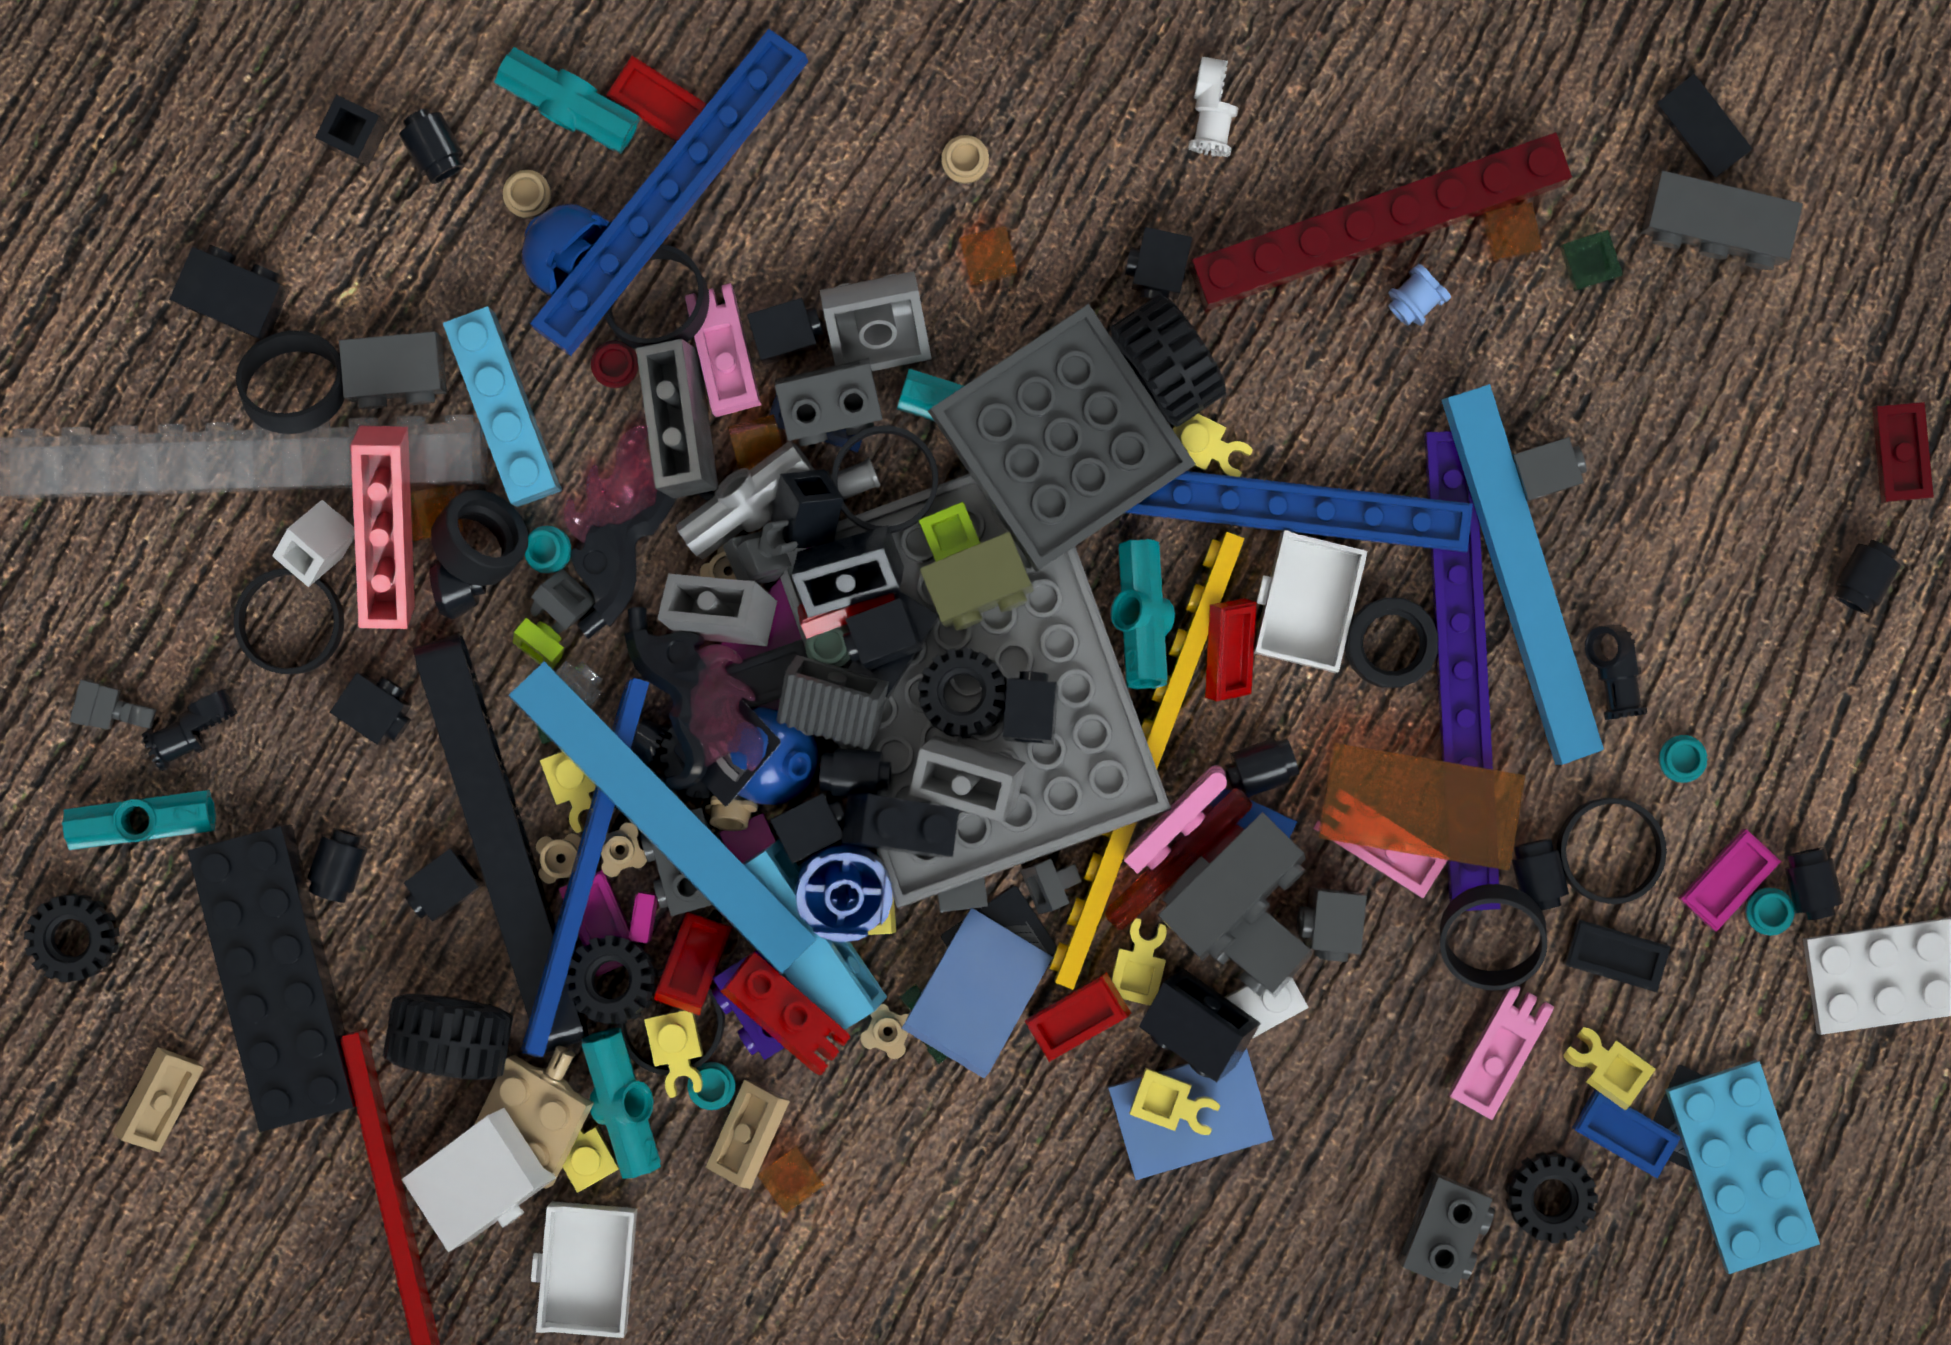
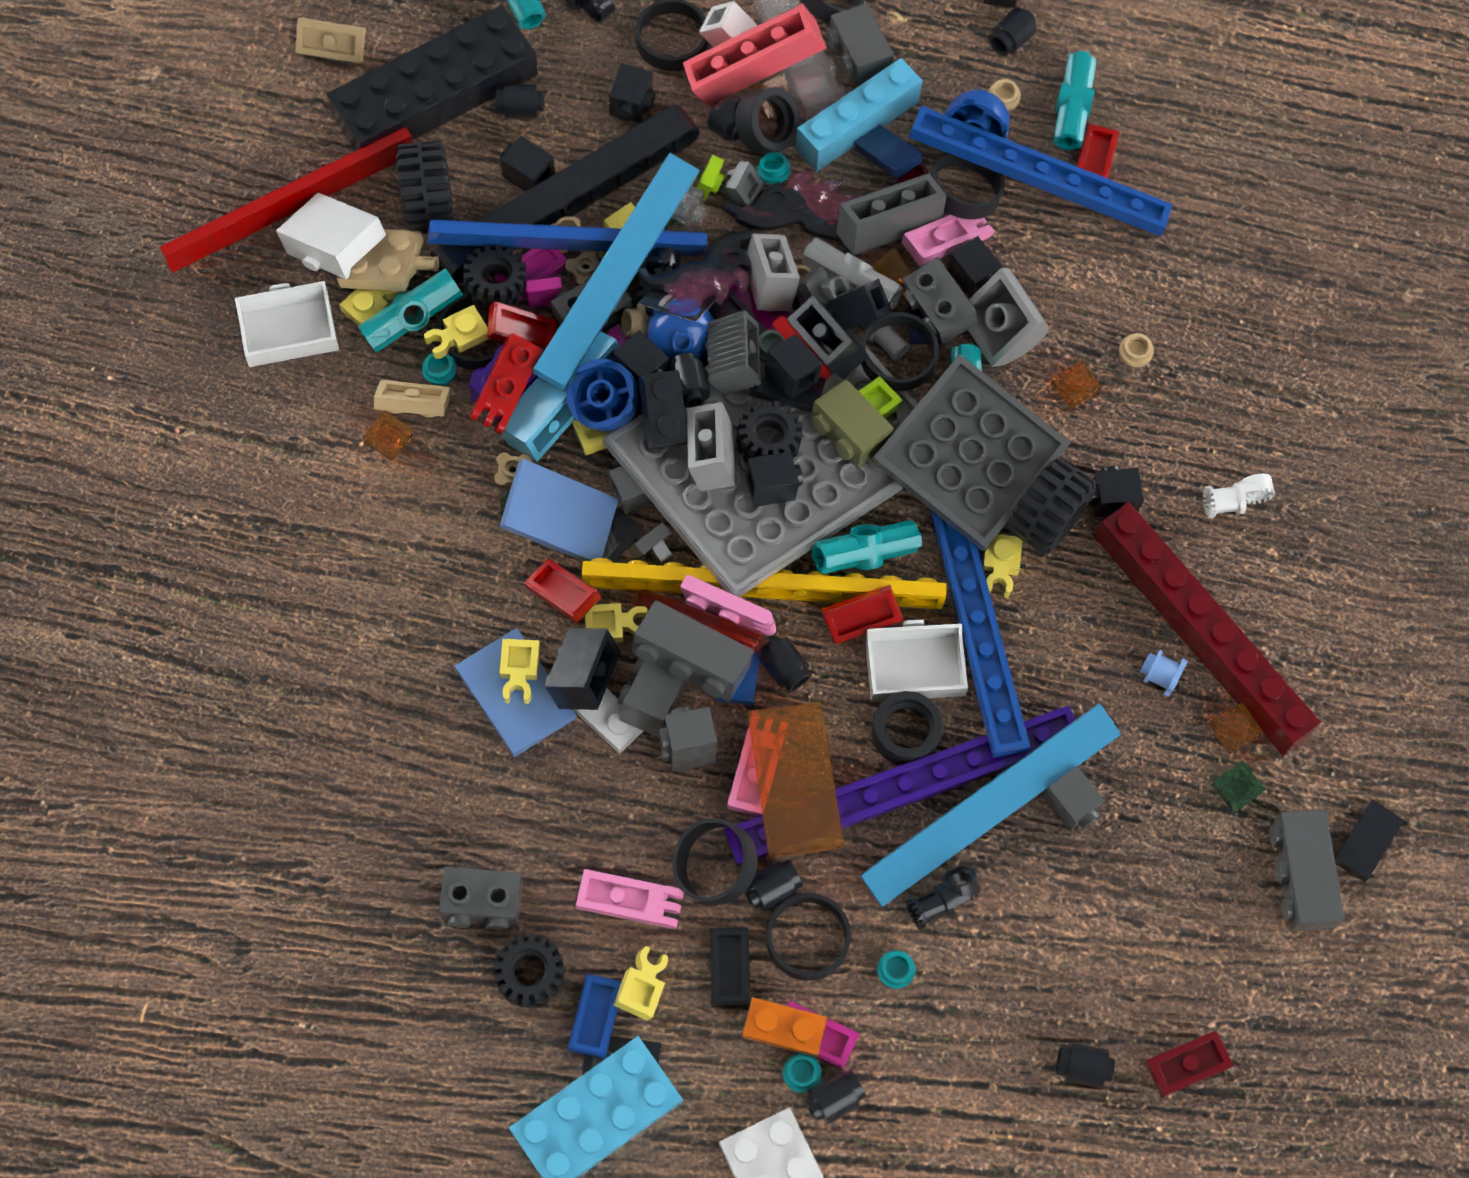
camera: 70 degrees right, 20 degrees down
(572, 386) = (888, 151): none -> dark blue tile
(1716, 916) = (784, 1027): none -> orange plate

